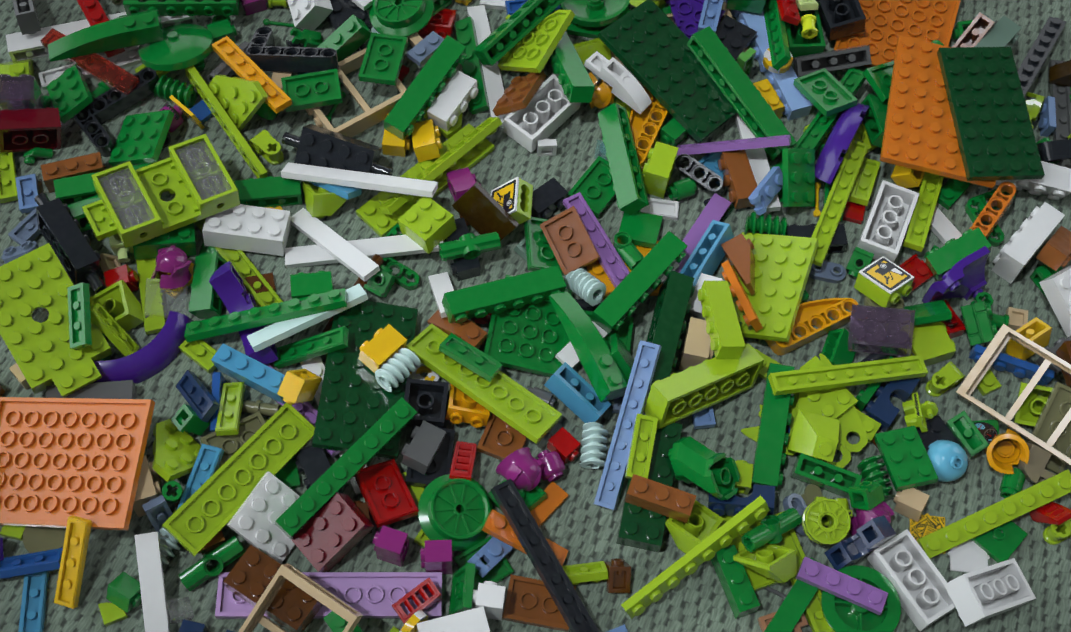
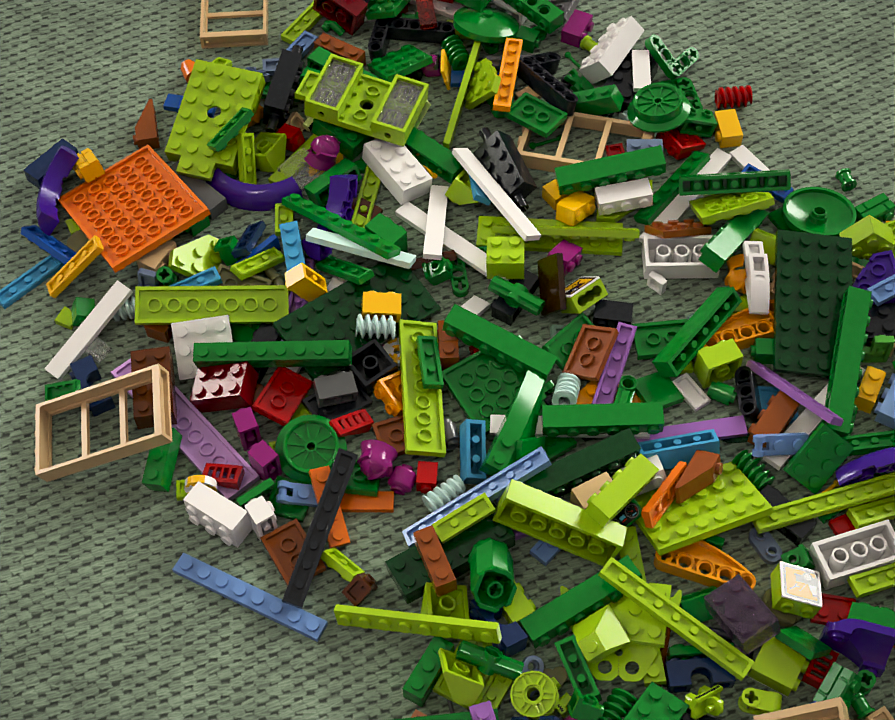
camera: 55 degrees right, 5 degrees down
(201, 571) = (135, 340): green piece -> none
(267, 147) = (471, 130): lime piece -> none
(383, 59) = (606, 131): green plate -> none

